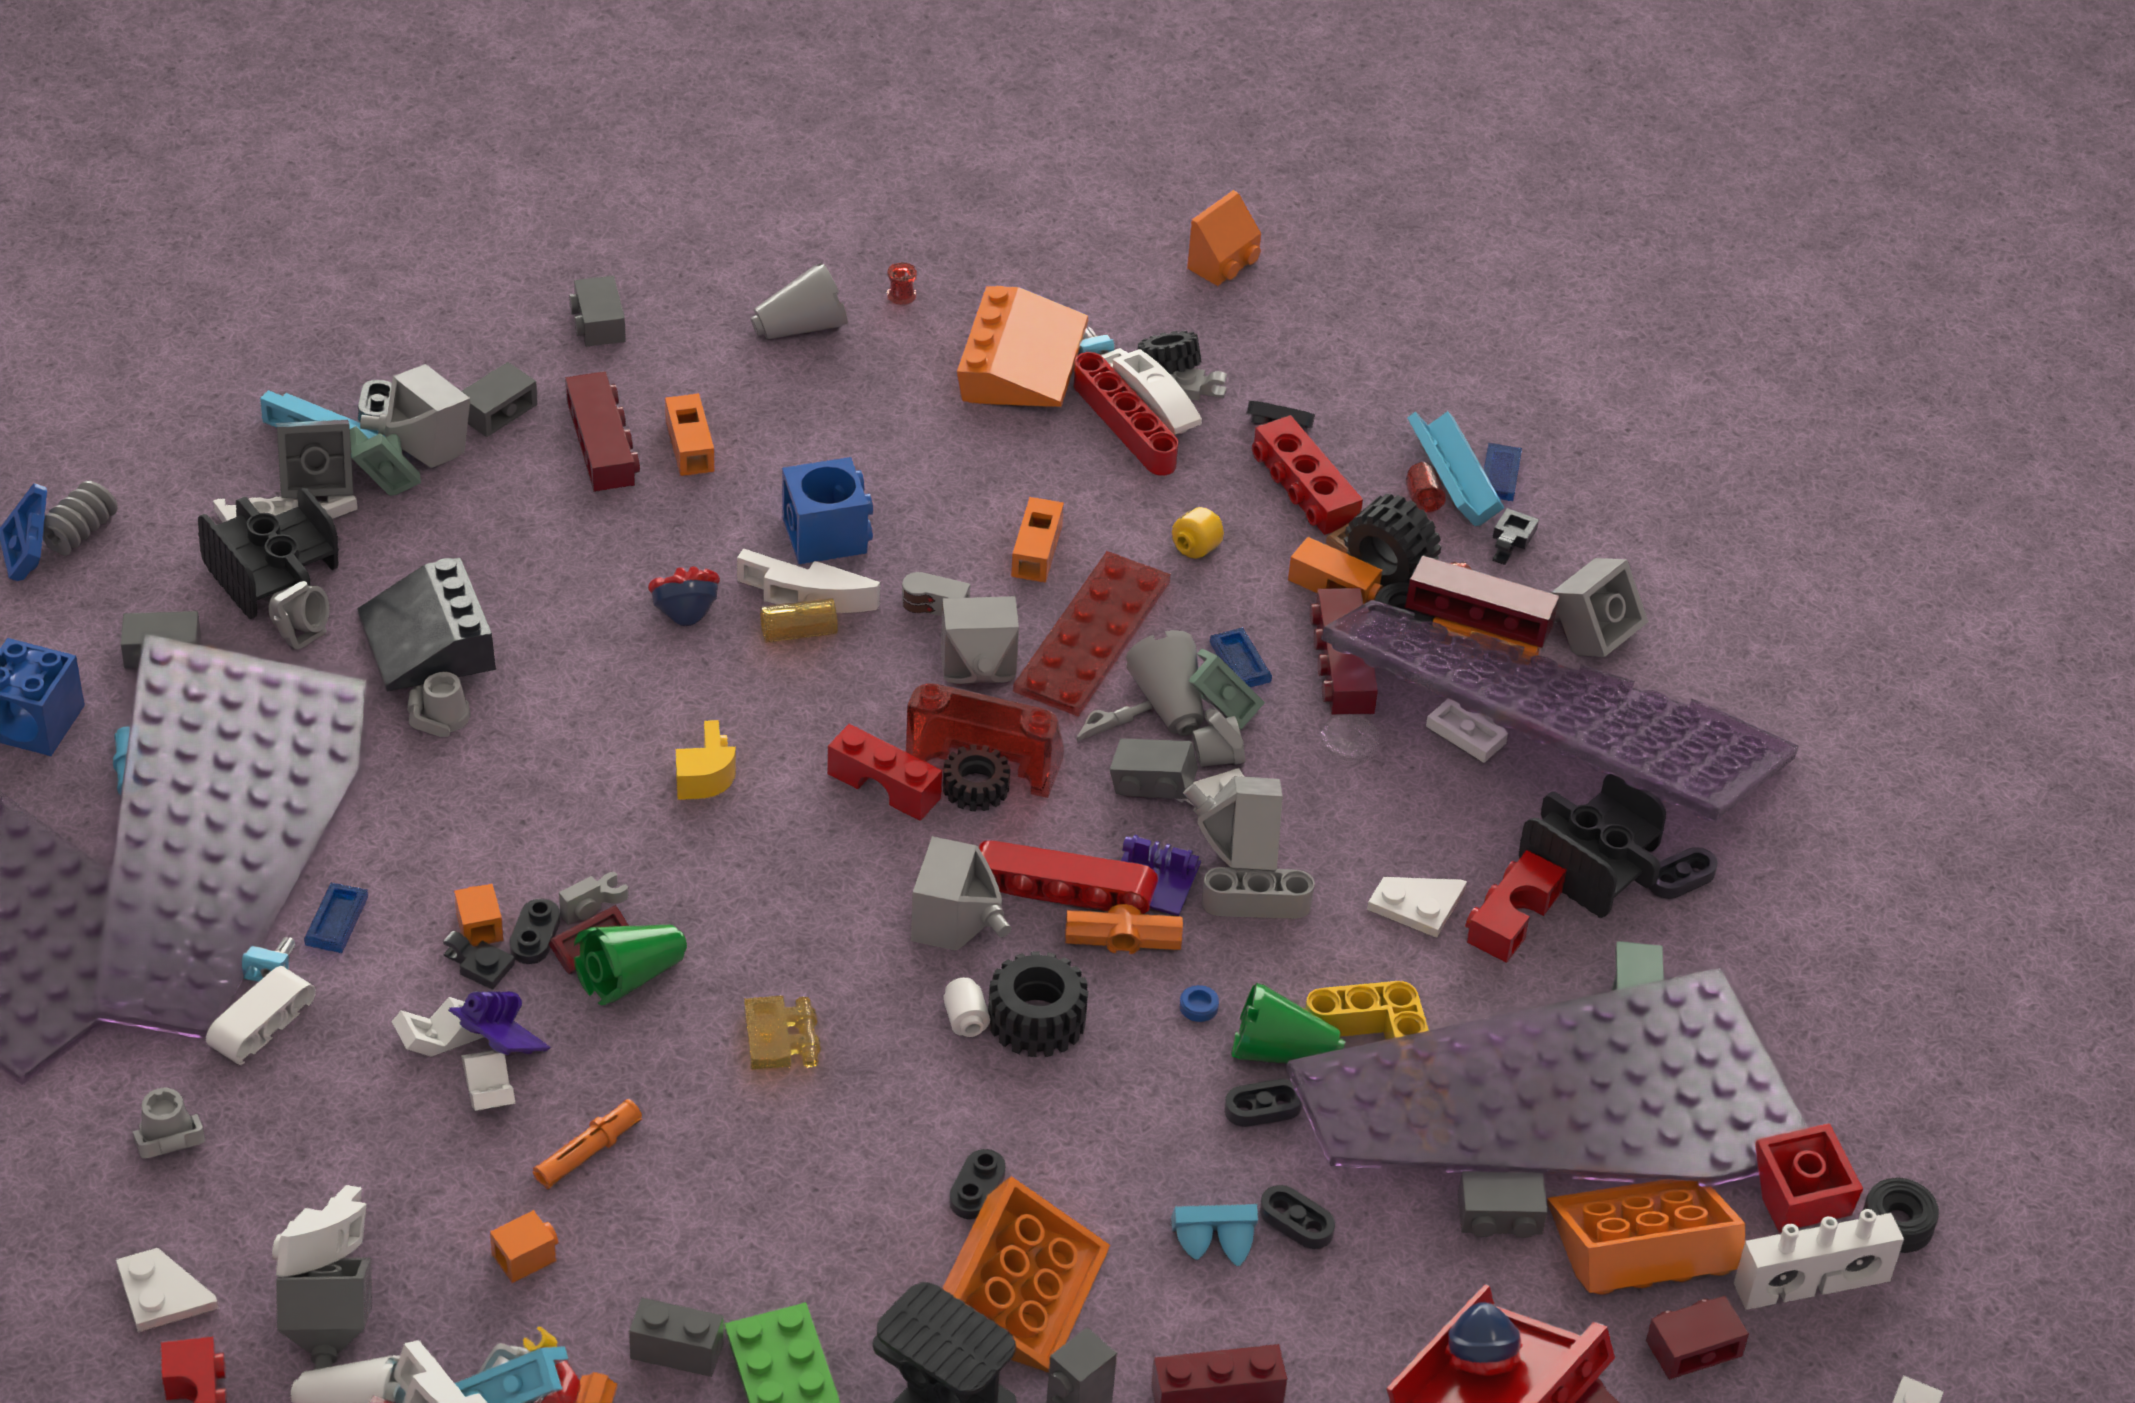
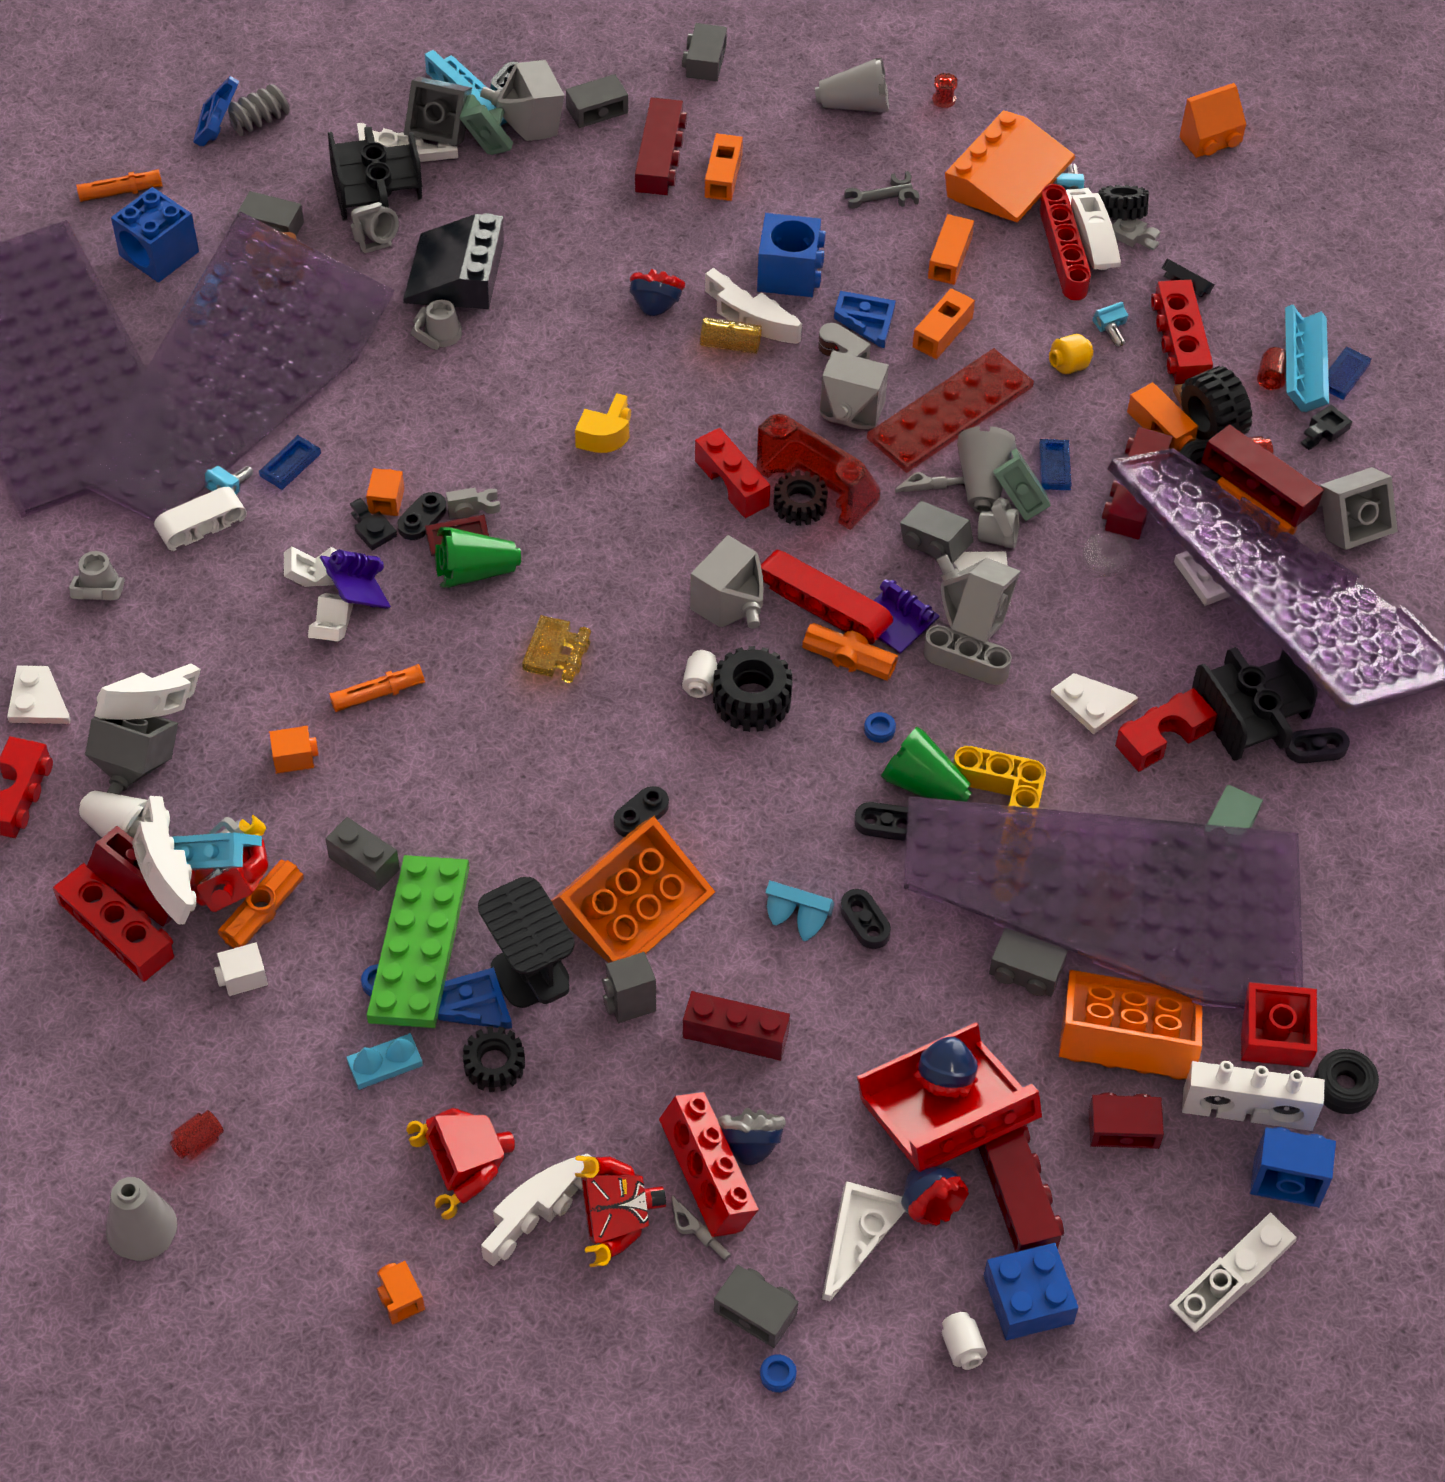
camera: 25 degrees right, 10 degrees up
(902, 405) = (899, 188): none -> dark grey bar
(942, 554) = (865, 315): none -> blue wing
(1002, 456) = (950, 249): none -> orange brick
(1218, 484) = (1109, 318): none -> medium azure piece
(1900, 1320) = (1293, 1166): none -> blue brick

